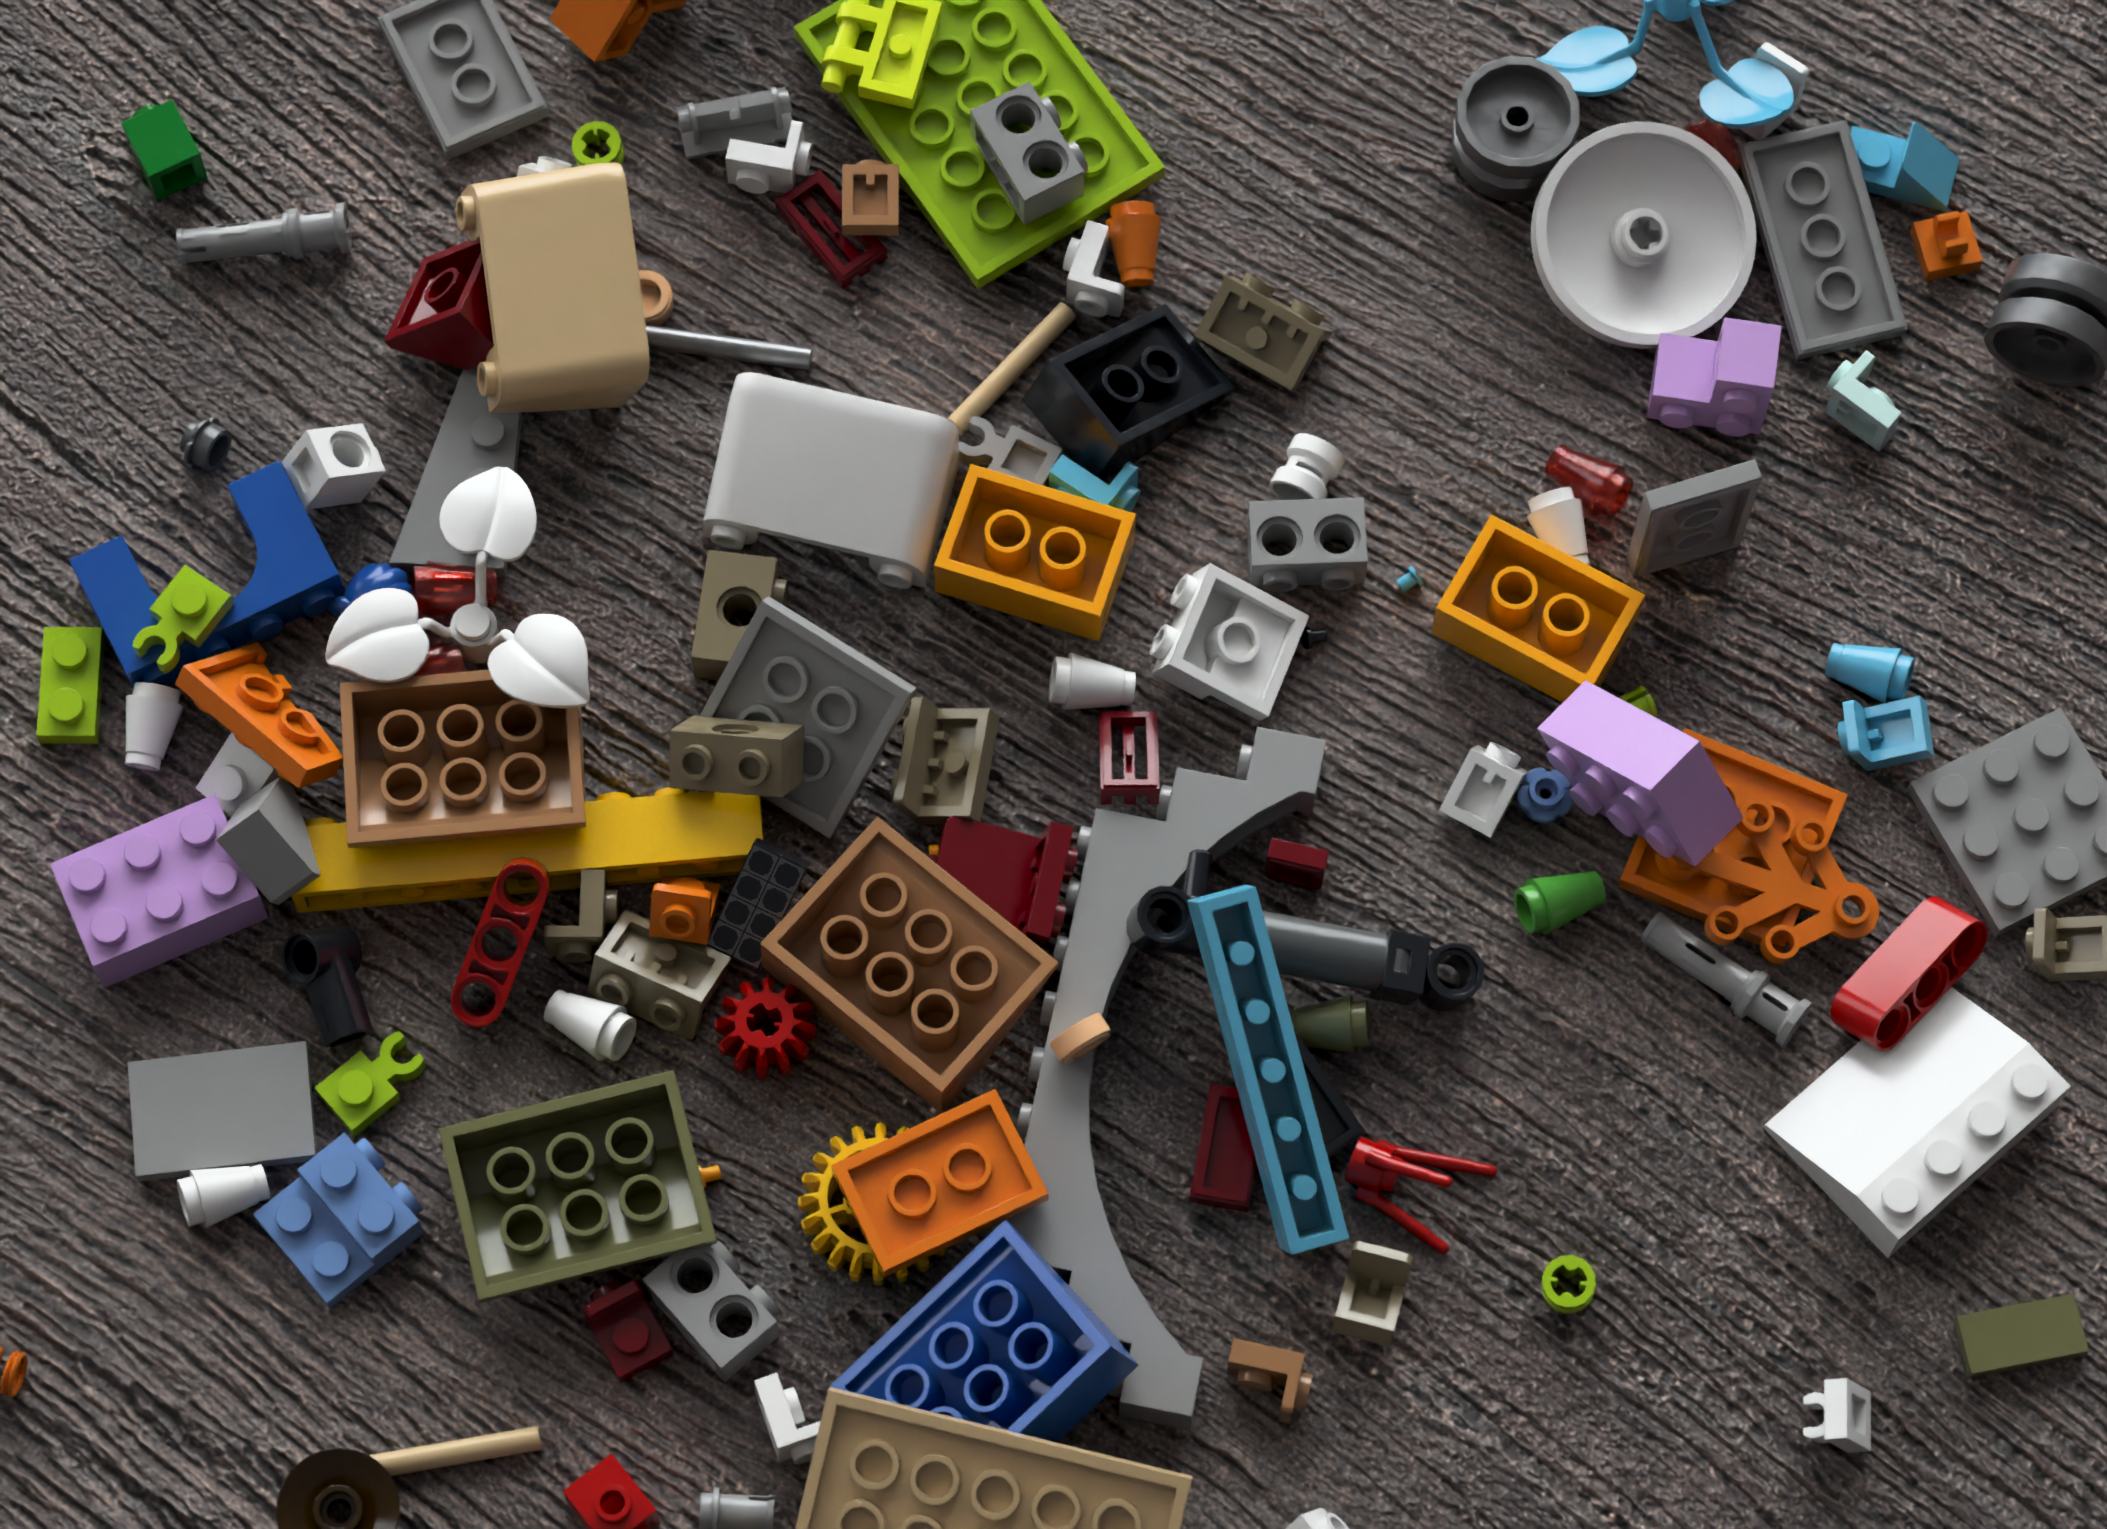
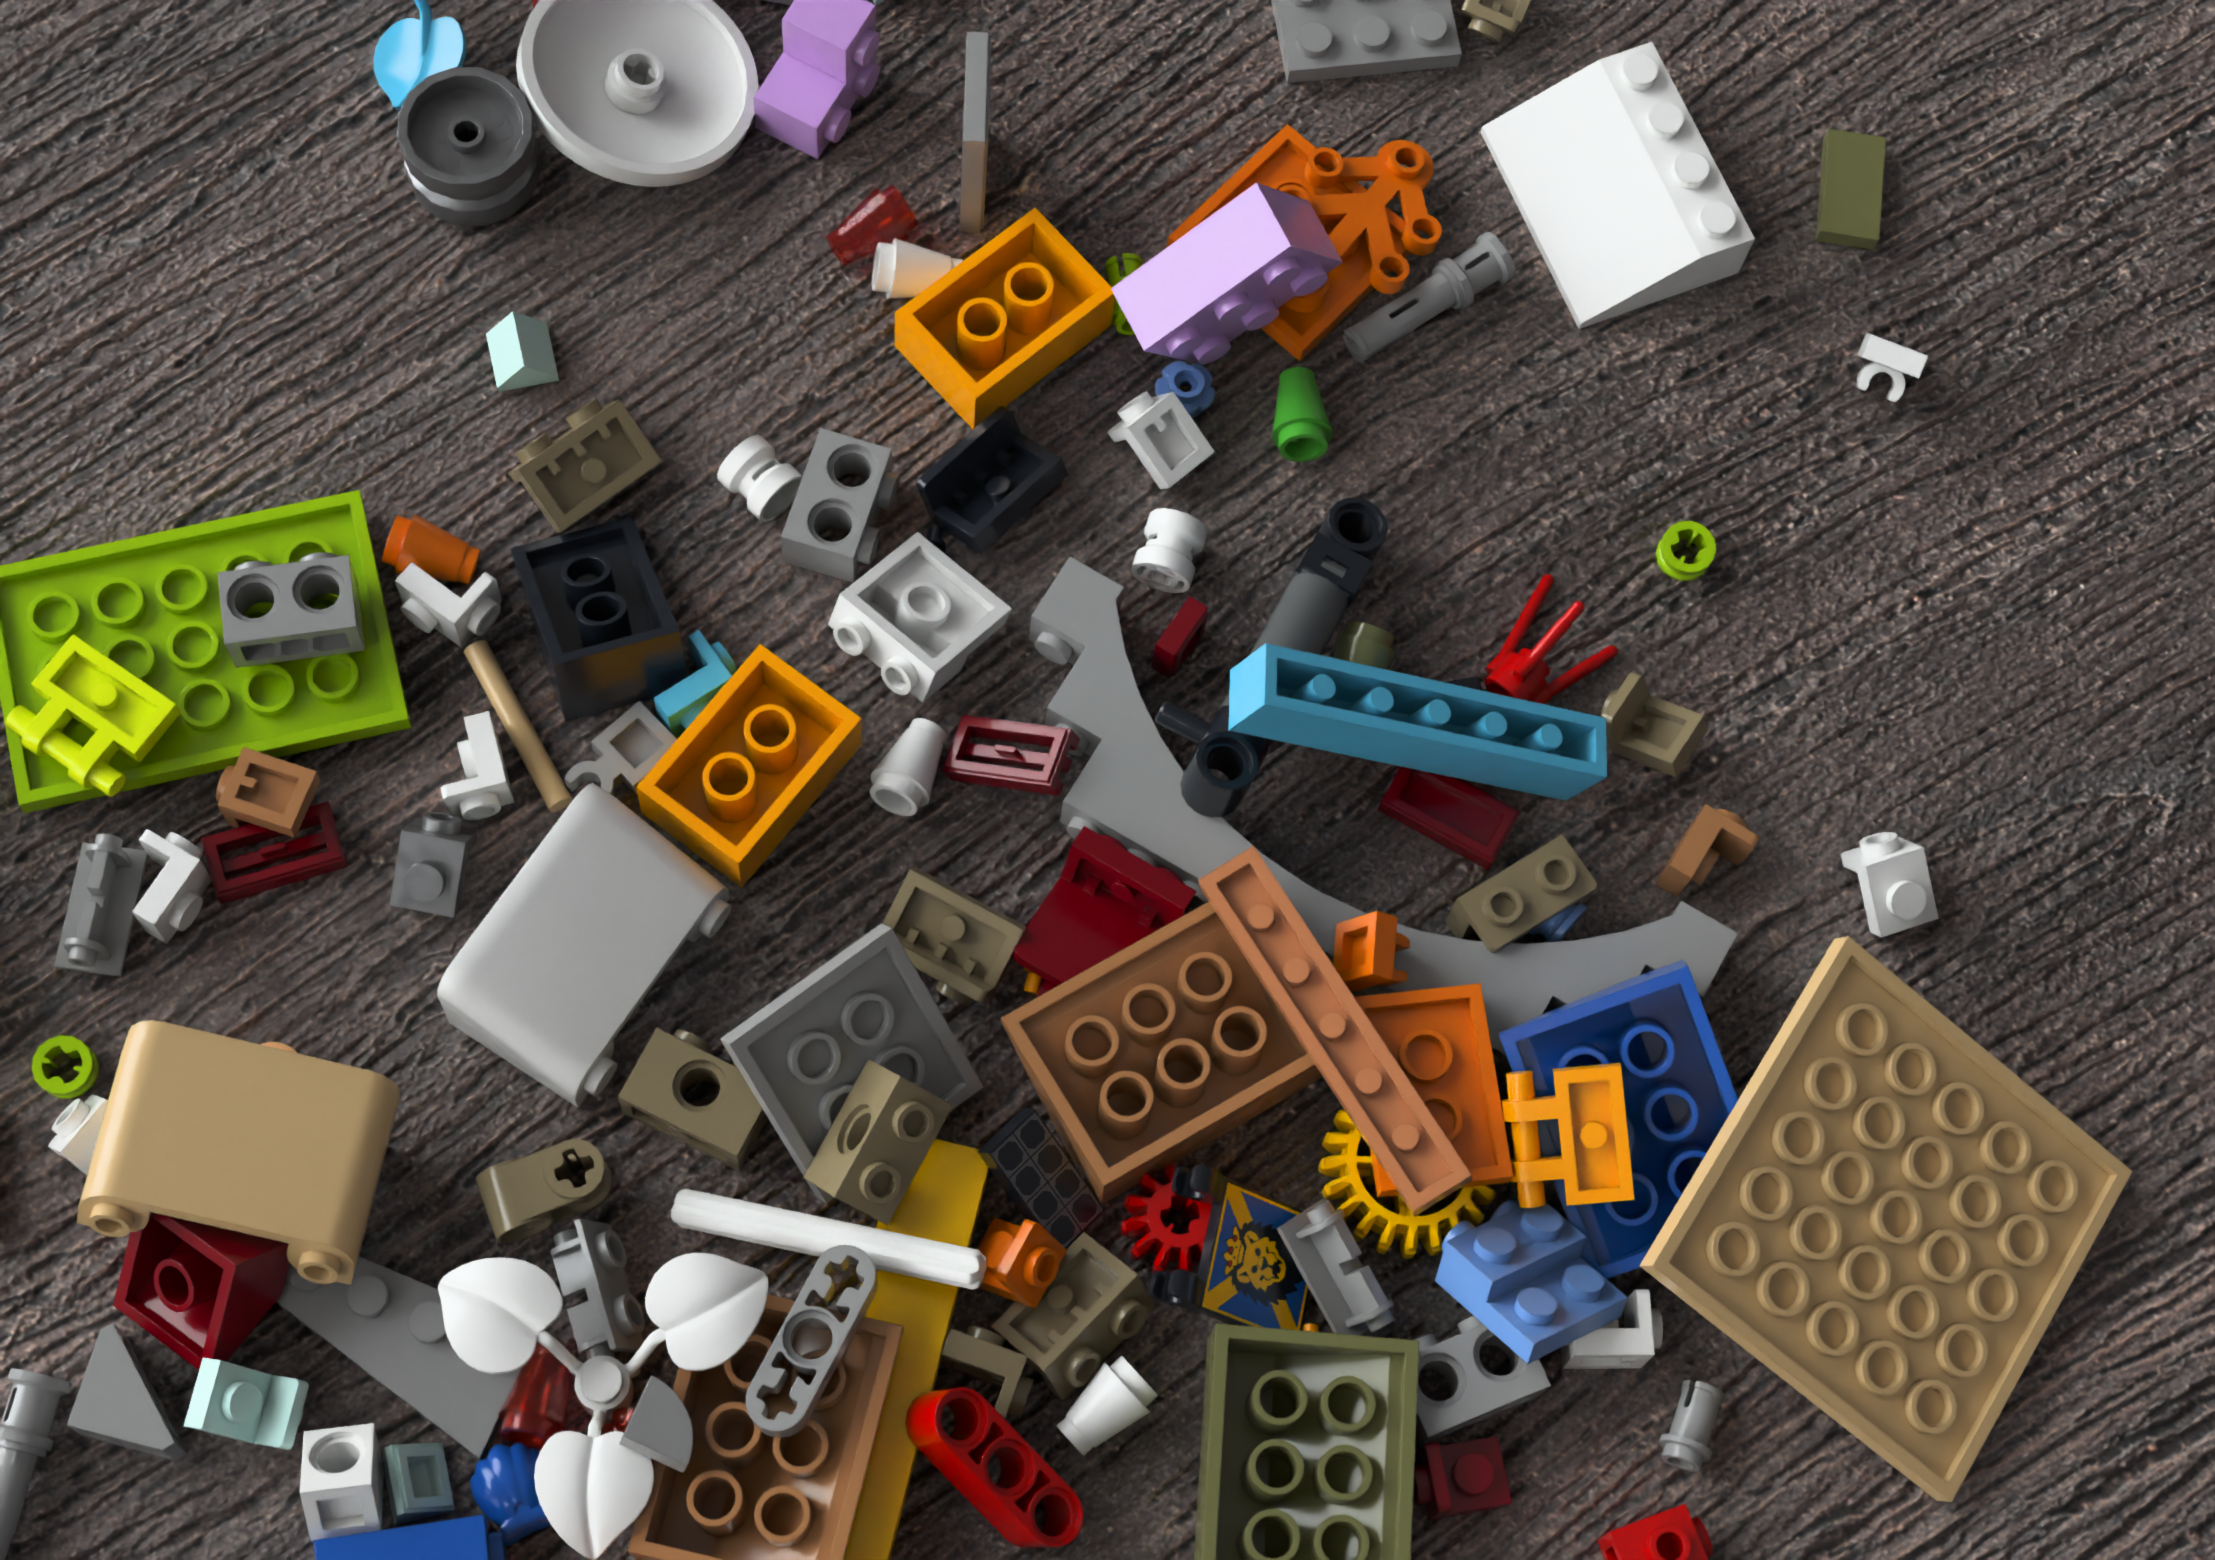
camera: 80 degrees left, 0 degrees up
(348, 289) = (120, 1402): none -> light grey slope
(357, 525) = (417, 1481): none -> light aqua slope
(372, 375) = (246, 1404): none -> light aqua bracket
(440, 666) = (660, 1427): none -> light grey tile
(502, 766) = (773, 1379): none -> light grey beam
(570, 592) = (593, 1262): none -> light grey hinge
(621, 531) = (536, 1190): none -> dark tan piece
(646, 751) = (817, 1234): none -> white axle
(729, 347) = (377, 992): flat silver bar -> none
(748, 1096) = (1244, 1264): none -> flag
(766, 1169) = (1333, 1272): none -> light grey hinge
(807, 1321) = (1527, 1279): none -> medium blue plate
(863, 346) = (432, 864): none -> flat silver bracket
(944, 1320) = (1591, 1135): none -> light orange plate
(953, 1077) = (1335, 1031): none -> nougat plate
(961, 357) = (485, 770): none -> white bracket
(1041, 1091) = (1367, 951): none -> orange tile
(1081, 1038) = (1320, 896): light nougat tile -> none
(1156, 1265) = (1560, 925): none -> medium blue bush
(1158, 1221) = (1522, 896): none -> dark tan bracket
(1350, 248) = (521, 352): none -> light aqua slope
(1376, 828) = (1169, 552): none -> white wheel
(1381, 656) = (989, 481): none -> black bracket
(1409, 580) = (908, 430): medium azure piece -> none
(1872, 670) = (1166, 58): medium azure cone -> none
(1886, 733) = (1235, 68): medium azure bracket -> none
(1909, 973) = (1484, 140): beam -> none

